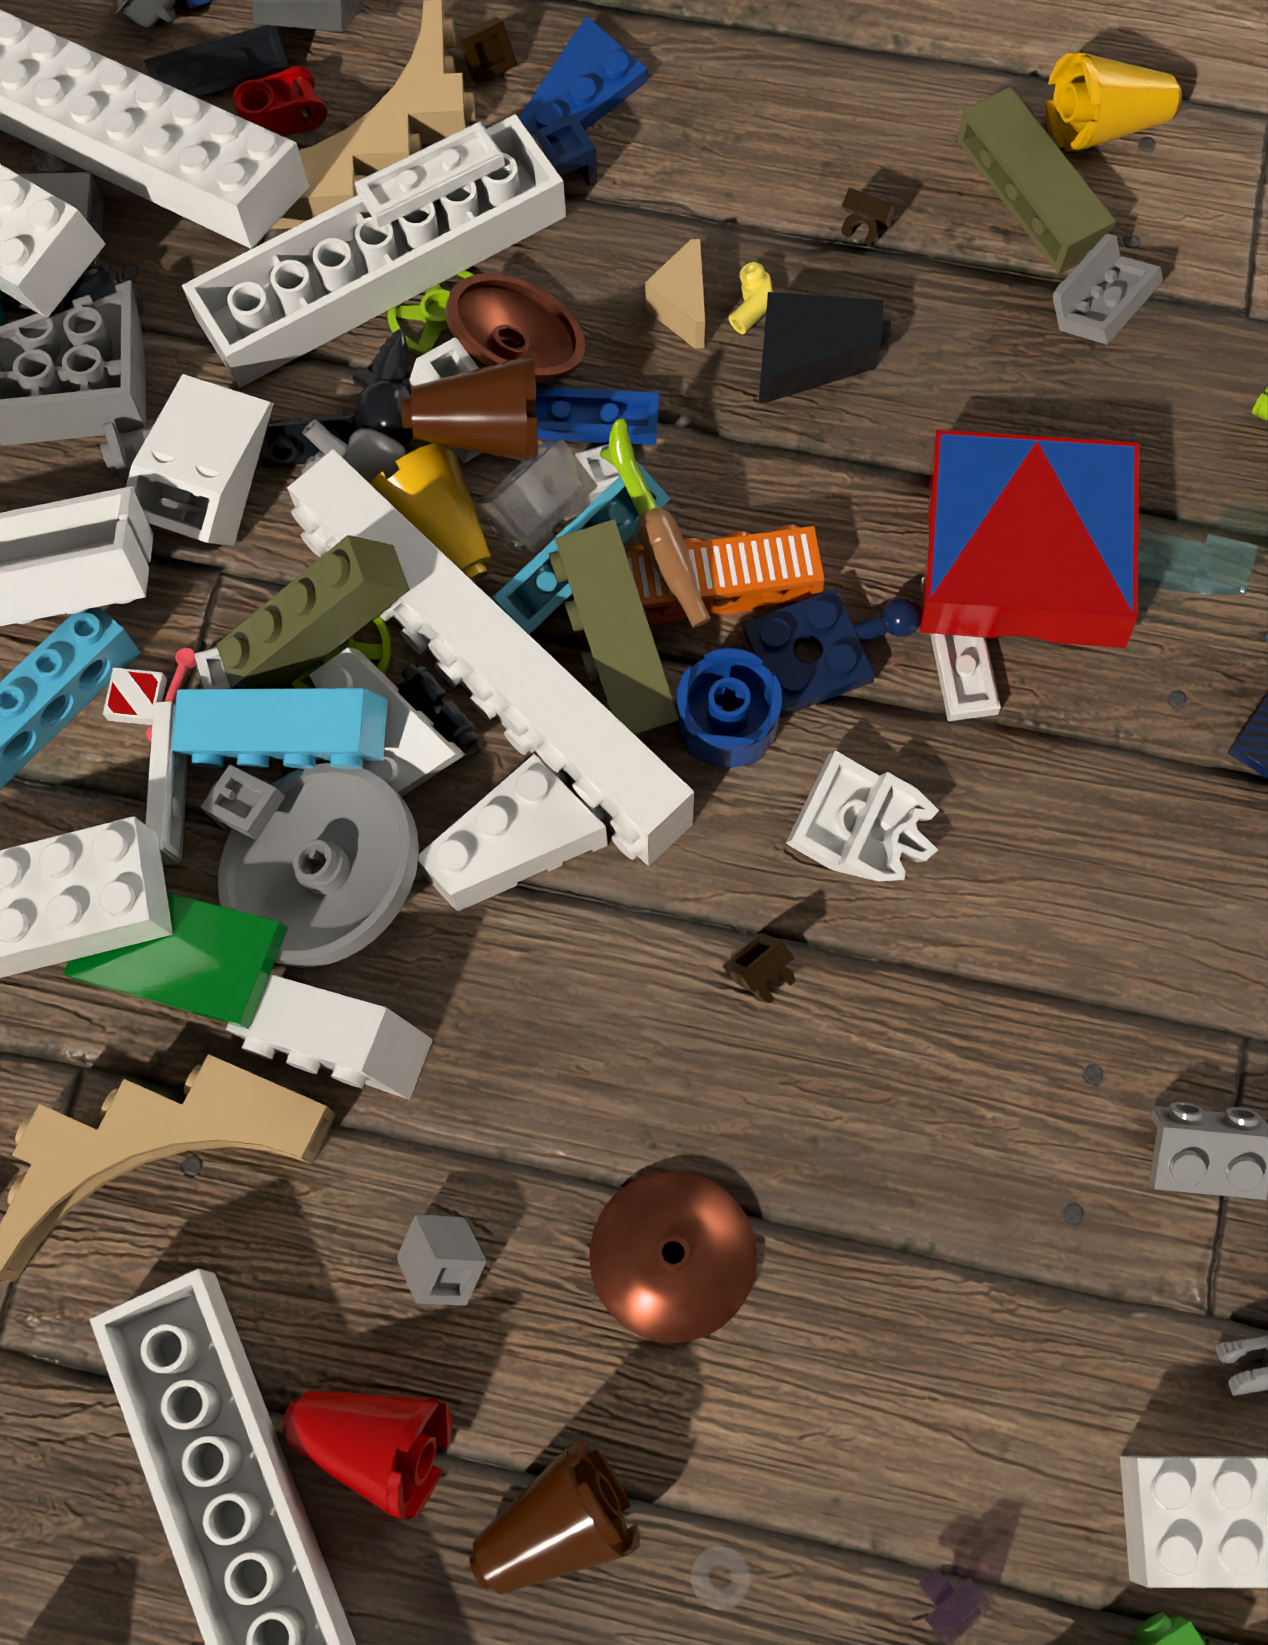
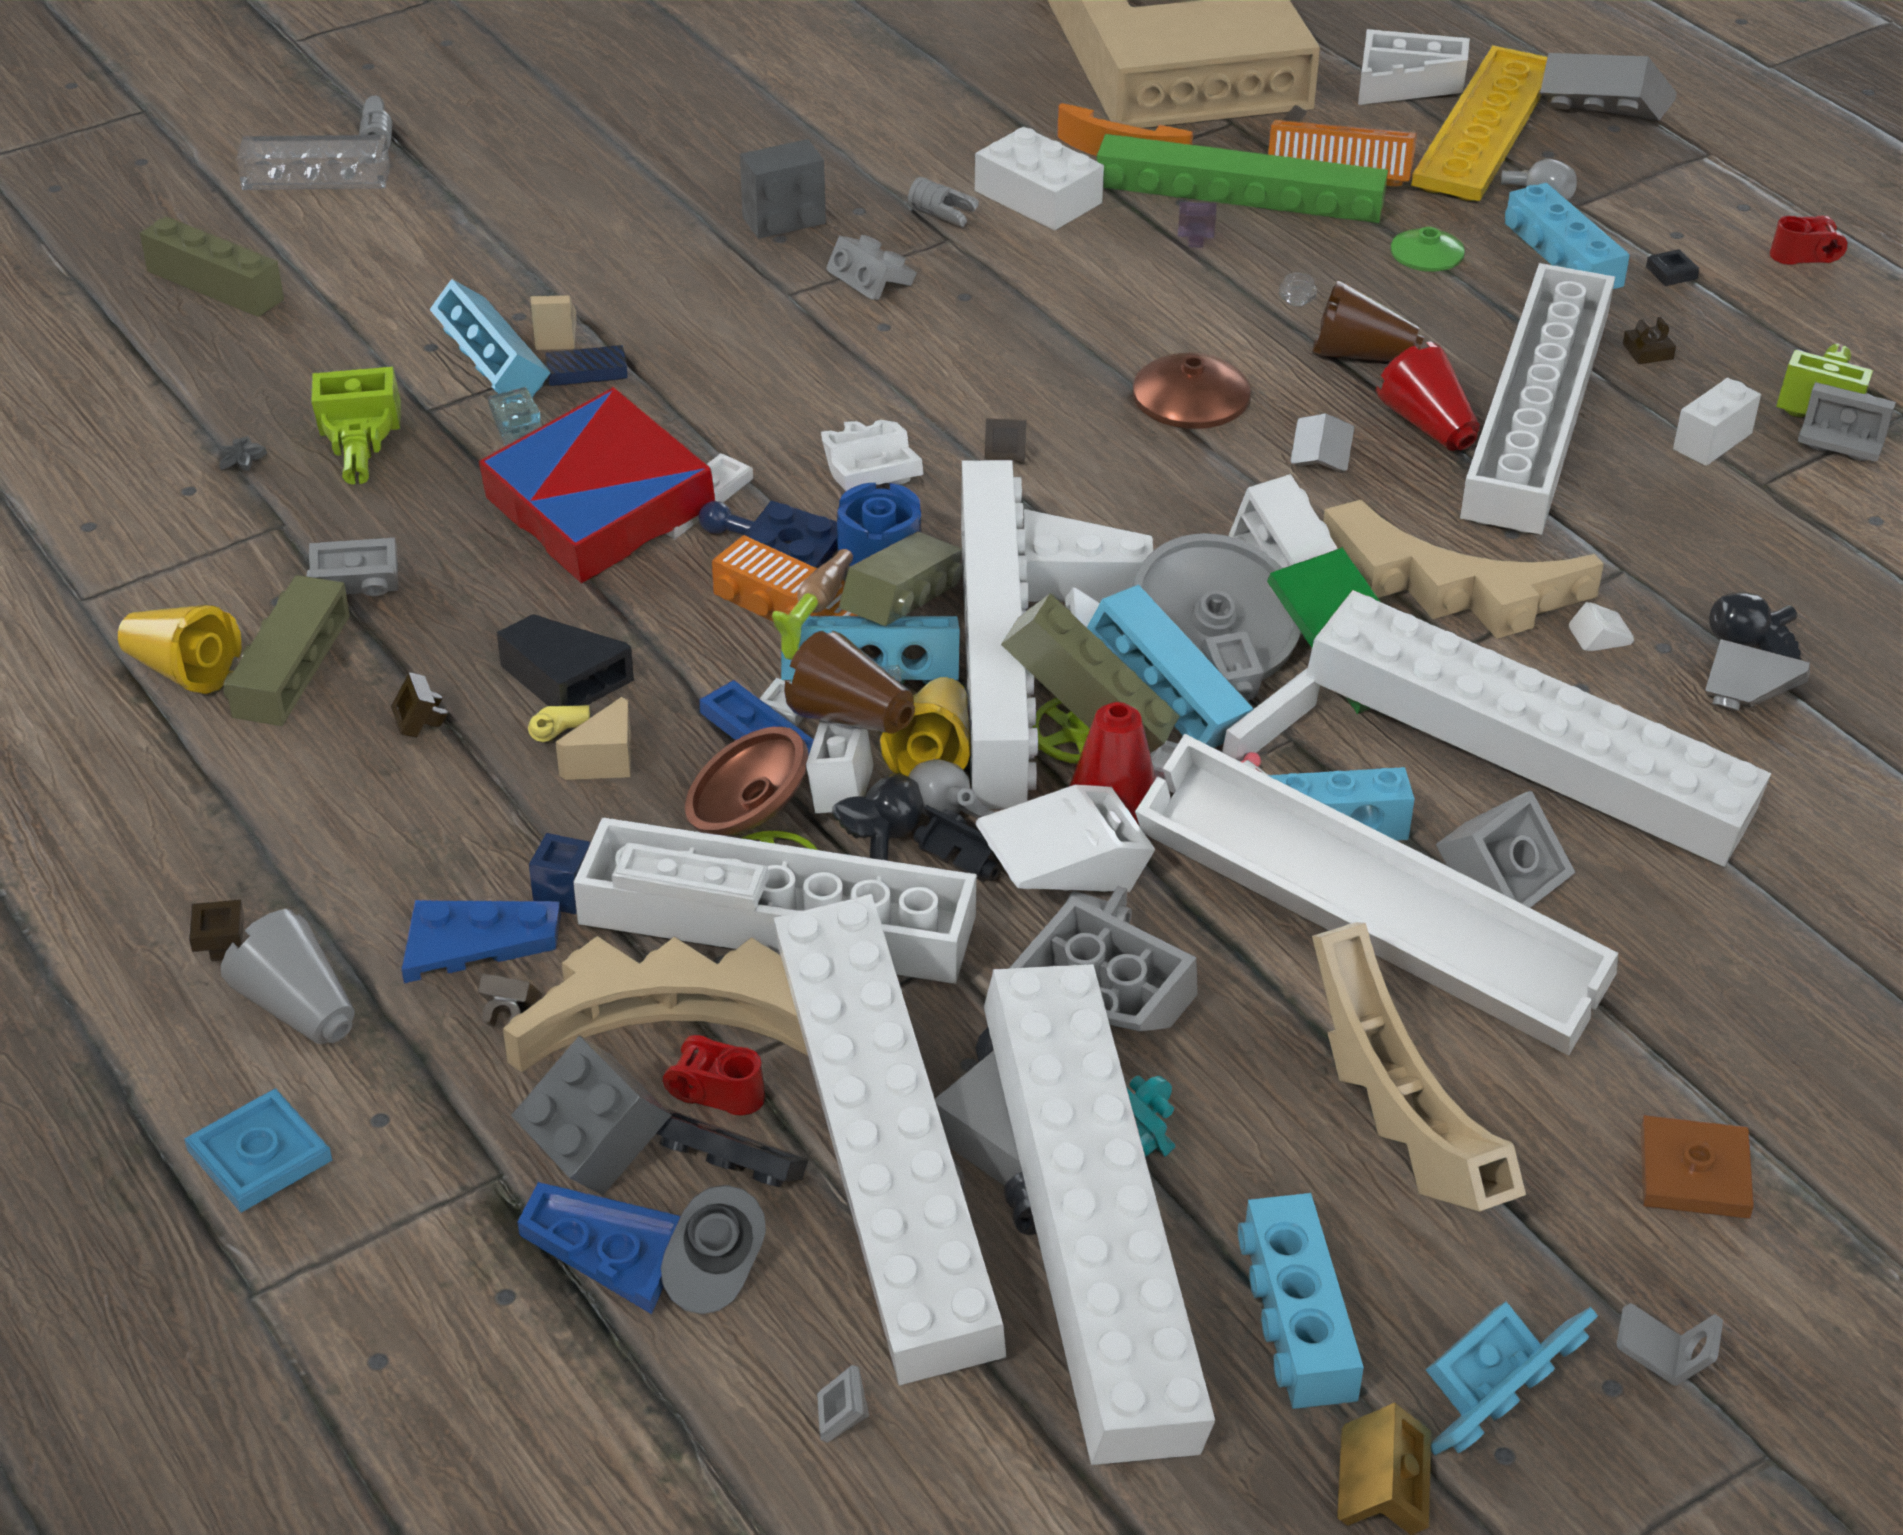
camera: 140 degrees left, 30 degrees down
(229, 579) = (1117, 755): none -> red cone

